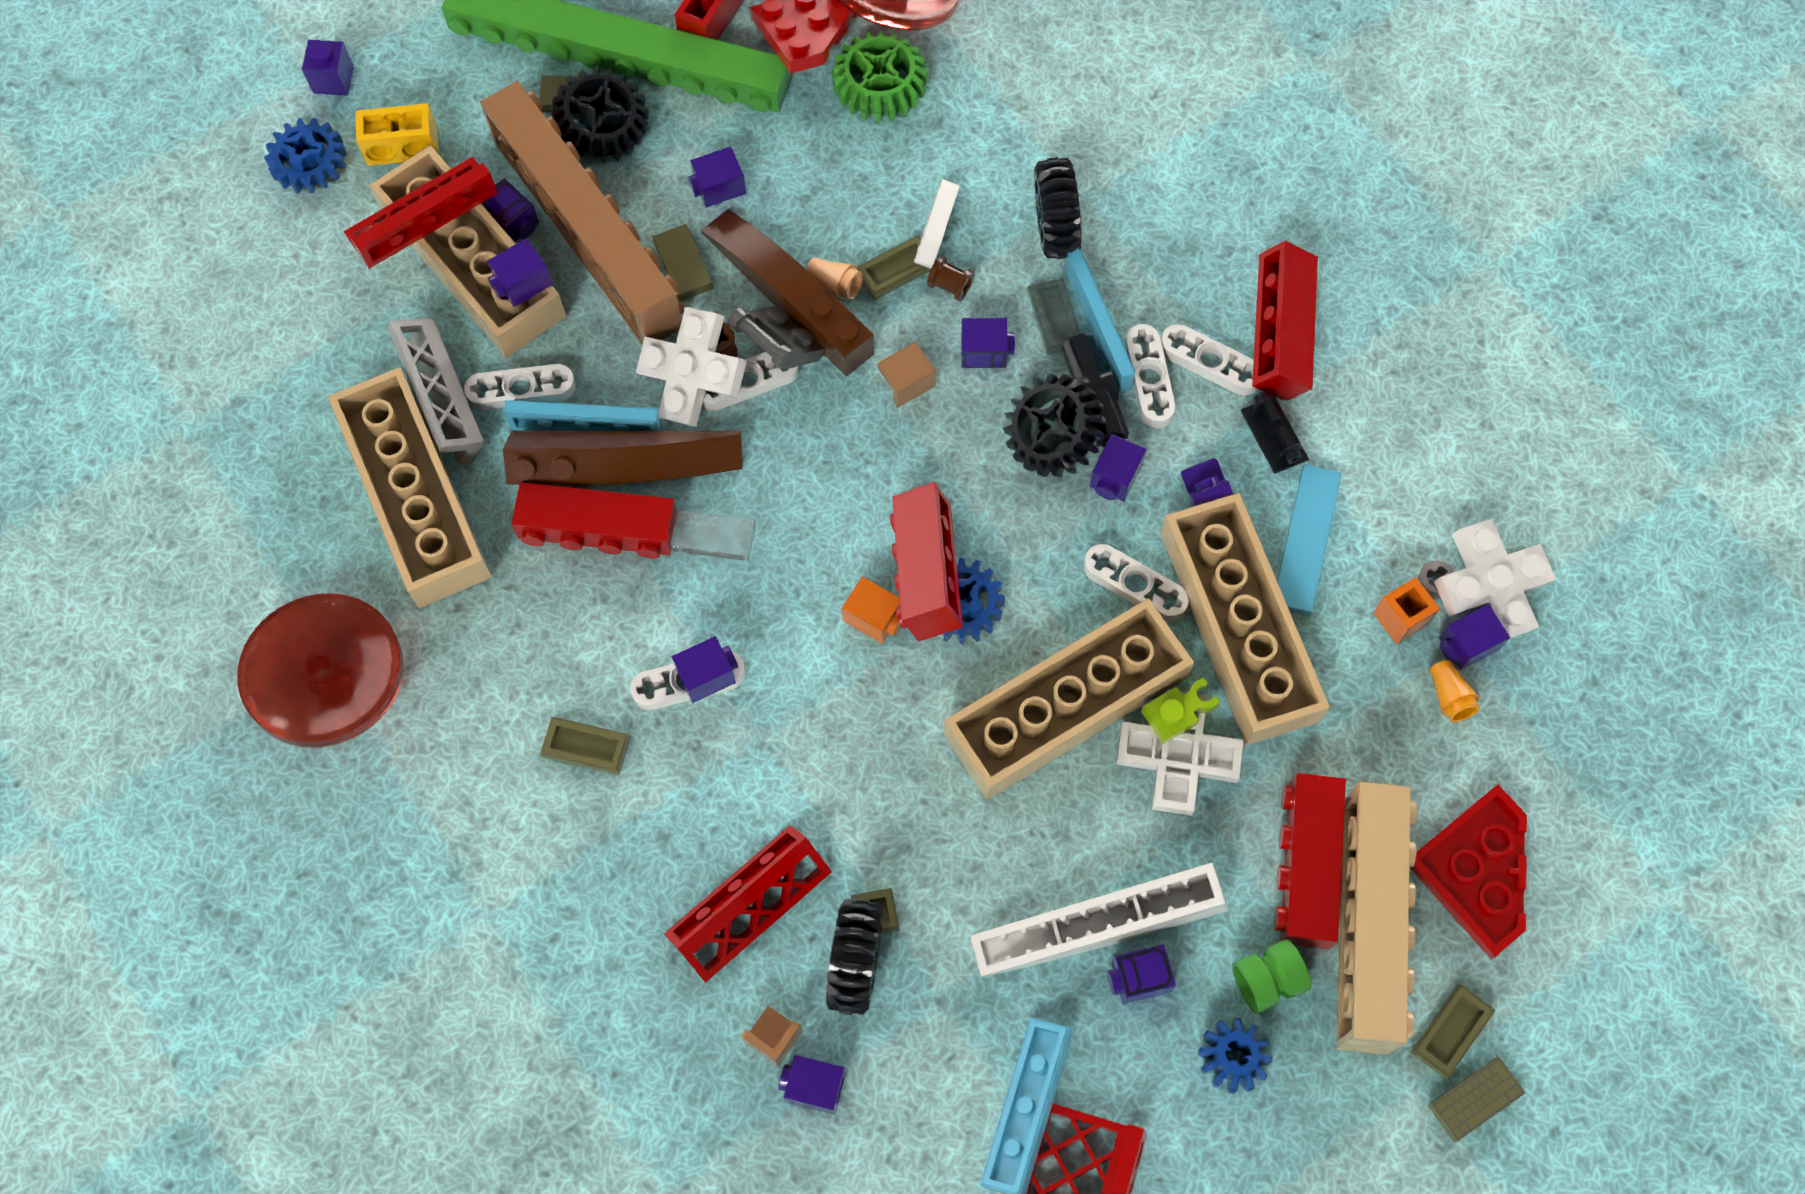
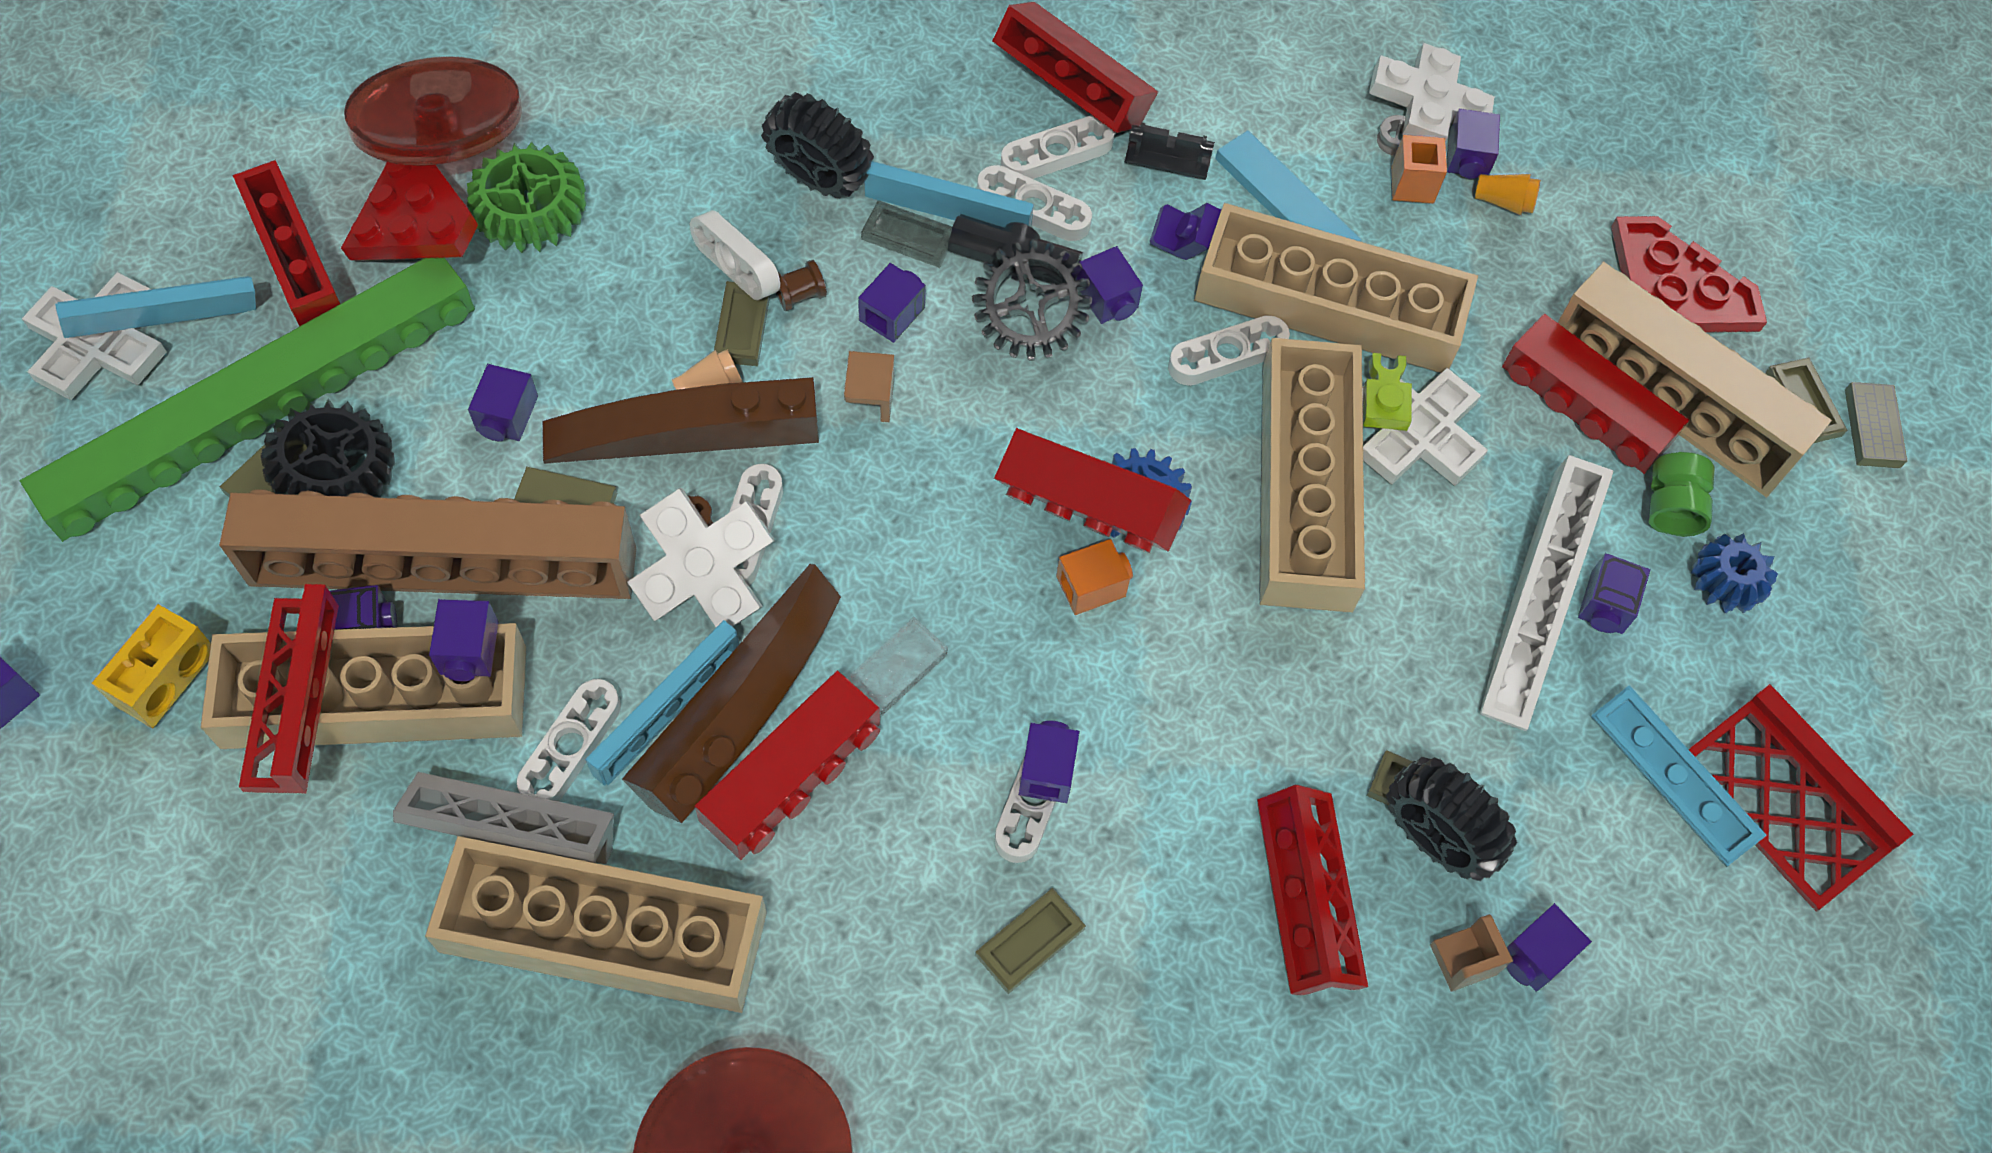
camera: 60 degrees left, 5 degrees down
(305, 155) = (53, 791): blue gear -> none
(777, 336) = (721, 464): dark grey plate -> none

